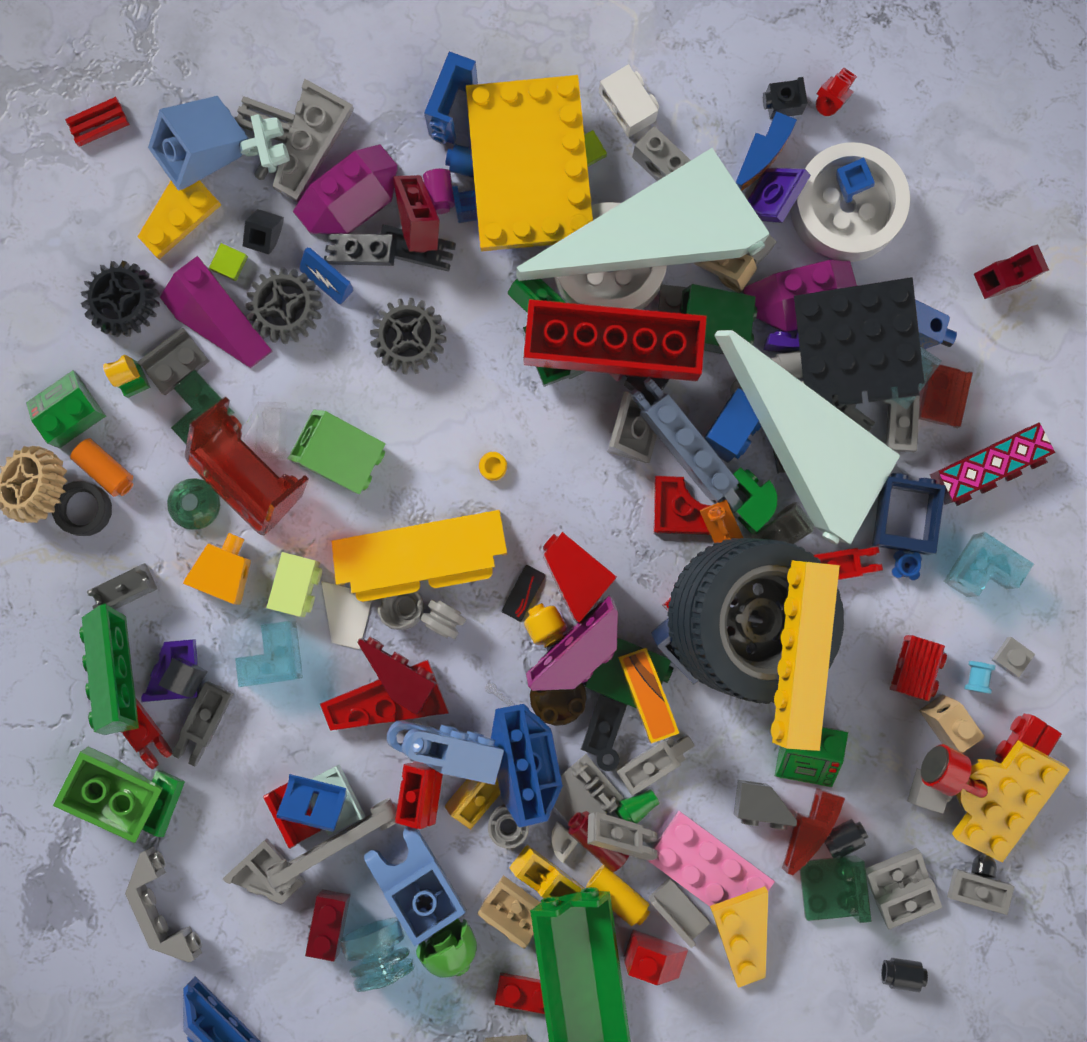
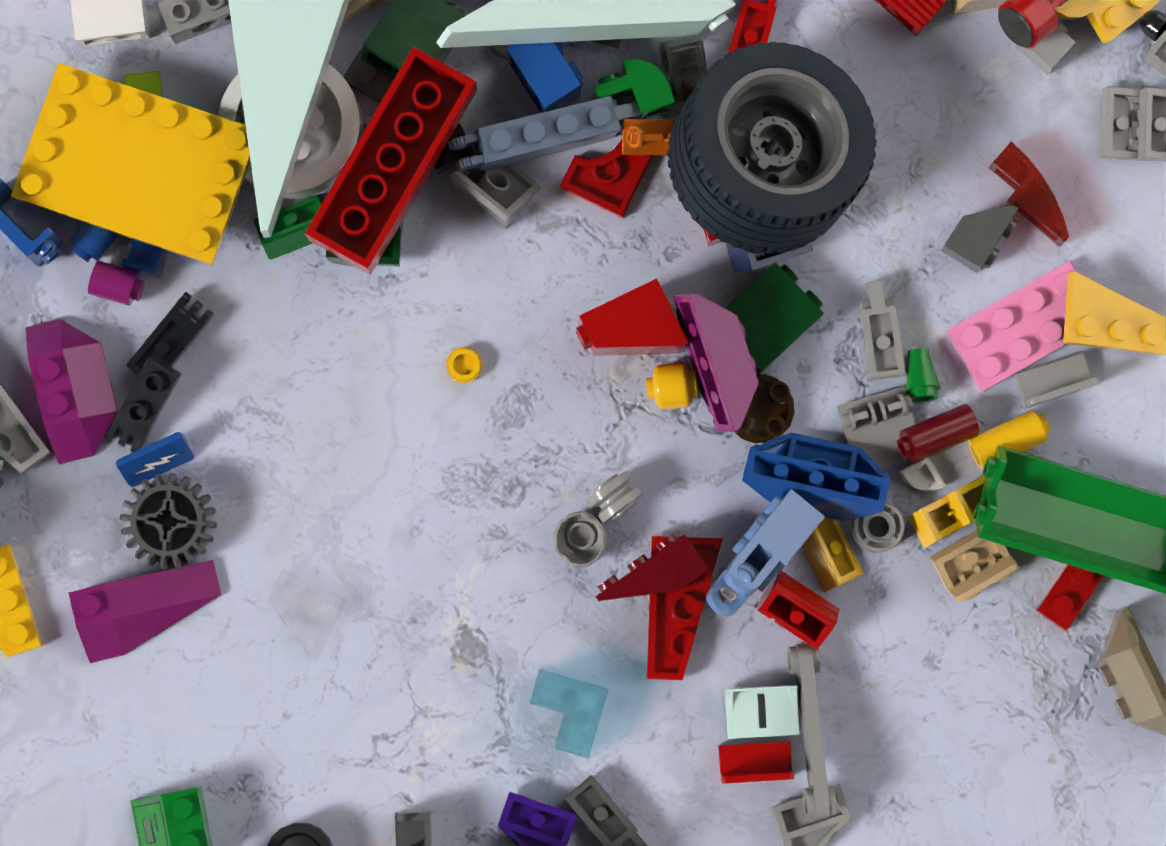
camera: 65 degrees left, 0 degrees up
(102, 467) = (263, 812): orange brick -> none
(114, 279) = (68, 723): black gear -> none
(126, 375) = (170, 737): yellow leg -> none
(173, 361) = (173, 679): dark grey plate -> none
(183, 677) = (549, 816): black brick -> none
(199, 397) = (249, 663): clear green plate -> none
(206, 509) = (371, 727): clear green piece -> none
(221, 571) = (444, 725): light orange torso -> none
(228, 262) = (85, 564): lime tile -> none
(237, 473) = (345, 656): clear red windscreen -> none
(262, 231) = (68, 508): black brick -> none
(294, 585) = (499, 649): yellowish green brick -> none
(299, 796) = (743, 746): blue piece -> none
(327, 925) = (897, 776): dark red brick -> none
(337, 451) = (366, 534): bright green slope -> none
(345, 614) = (557, 607): white sticker -> none
(379, 960) = (953, 732): clear light blue wheel -> none
(400, 345) = (285, 387): dark grey gear -> none
(414, 877) = (888, 661): medium blue brick -> none
(416, 213) = (133, 319): dark red slope -> none
(436, 551) = (523, 512): yellow slope -> none
(449, 950) = (982, 651): bright green cylinder -> none
(523, 593) = (624, 395): black sticker -> none
(603, 730) = (819, 374): black hinge -> none
(621, 836) = (943, 404): light grey hinge -> none
(648, 695) = (802, 303): slope -> none
(653, 958) = (1091, 430): red slope -> none
(805, 655) = (834, 111): yellow brick -> none
(813, 765) = (947, 156): green slope -> none
(835, 889) = (1106, 198): clear green bracket -> none
(846, 838) = (1057, 161): black brick -> none

